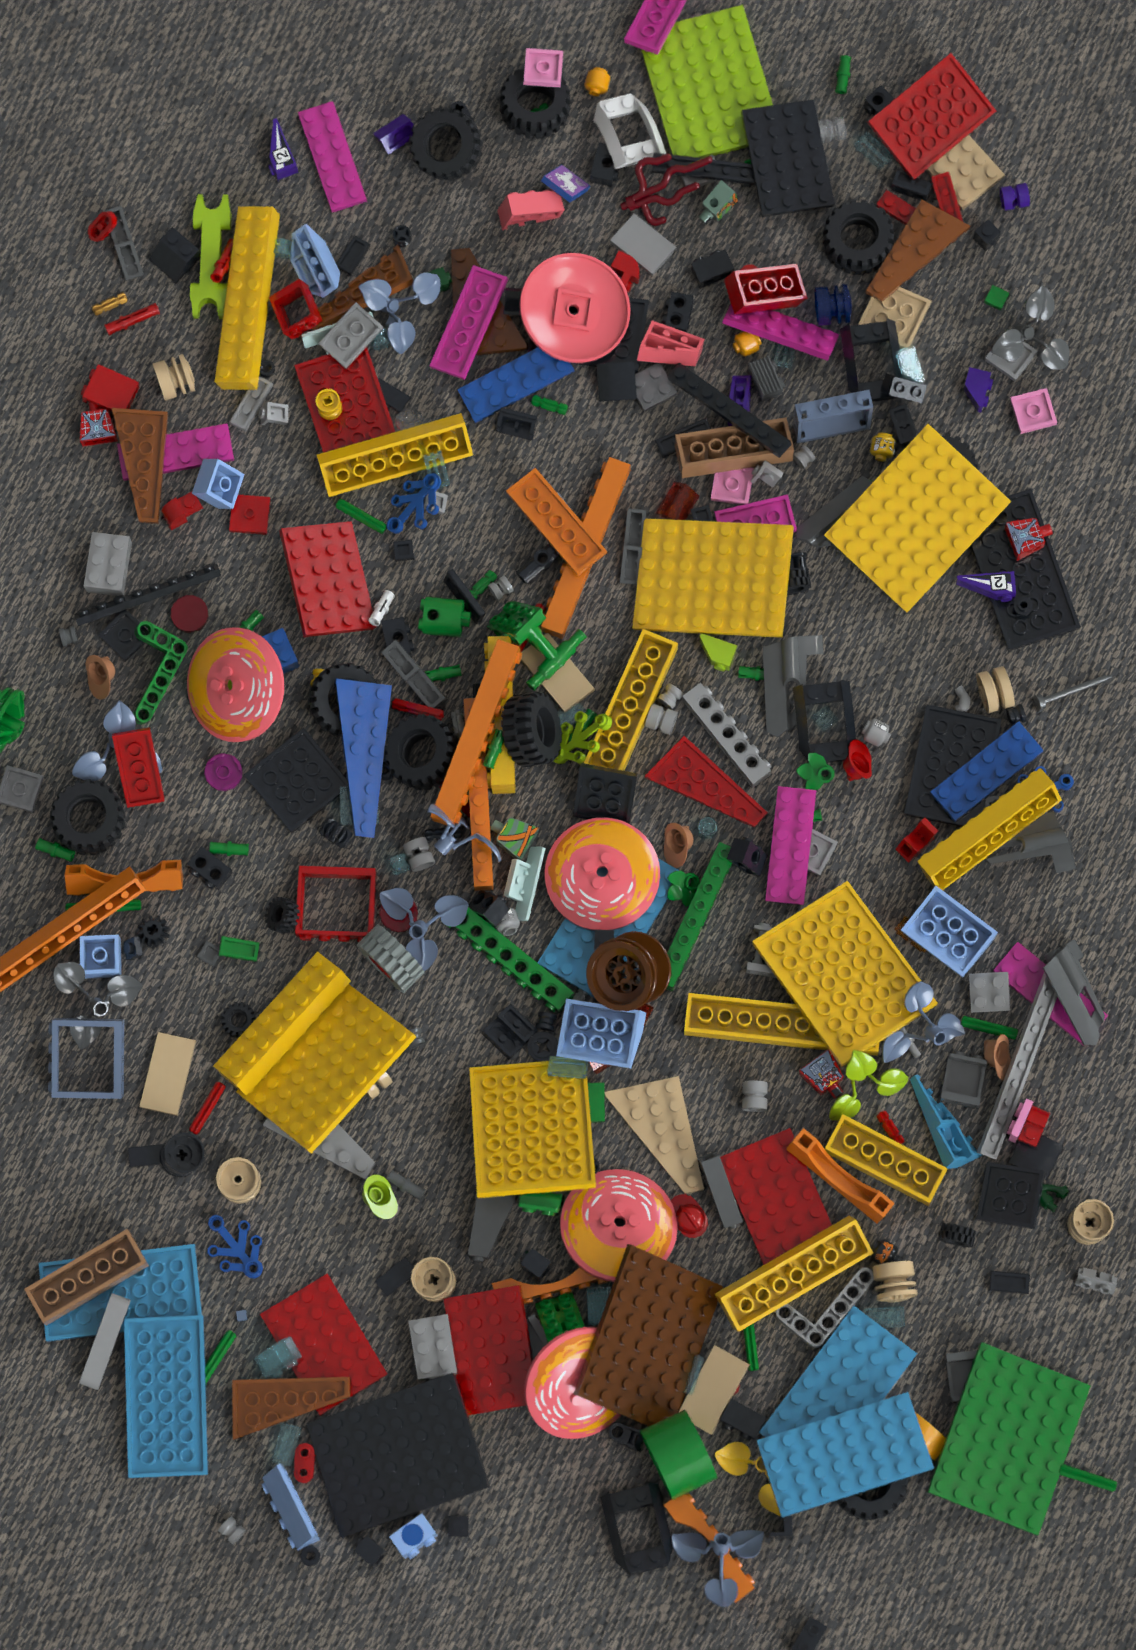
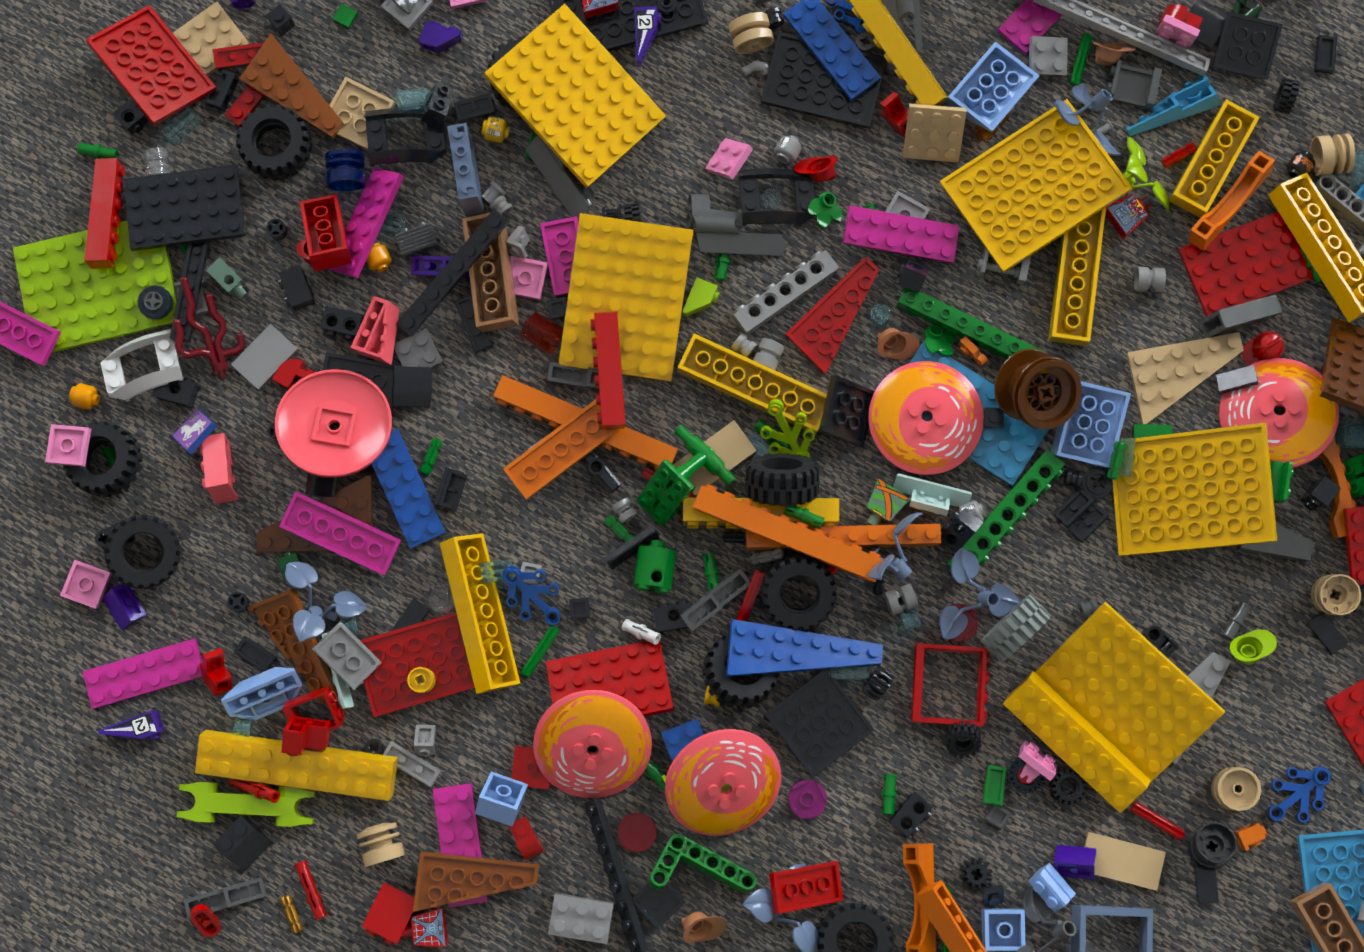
camera: 90 degrees left, 5 degrees up
(140, 1002) = (1051, 887): none -> light blue brick
(166, 1025) = (1075, 861): none -> dark purple panel
(193, 1196) = (1250, 835): none -> orange brick
(257, 982) = (1031, 768): none -> bright pink plate
(275, 299) = (305, 733): none -> red brick
(291, 566) = (585, 721): none -> dish
(333, 219) = (214, 672): none -> red brick
(382, 1109) = (1162, 642): none -> black piece
(415, 97) = (86, 584): none -> bright pink plate
(563, 1058) = (1116, 460): none -> green axle
(634, 560) = (609, 370): none -> red brick
(652, 1184) = (1237, 379): none -> tile
(676, 915) = (968, 348): none -> orange plate
(689, 130) = (148, 299): none -> black wheel
(769, 243) = (277, 225): none -> black wheel
(777, 84) = (104, 213): none -> red brick
(818, 449) = (493, 192): none -> light grey bush
(862, 673) = (729, 158): none -> bright pink plate
(897, 873) = (934, 132): none -> tan plate

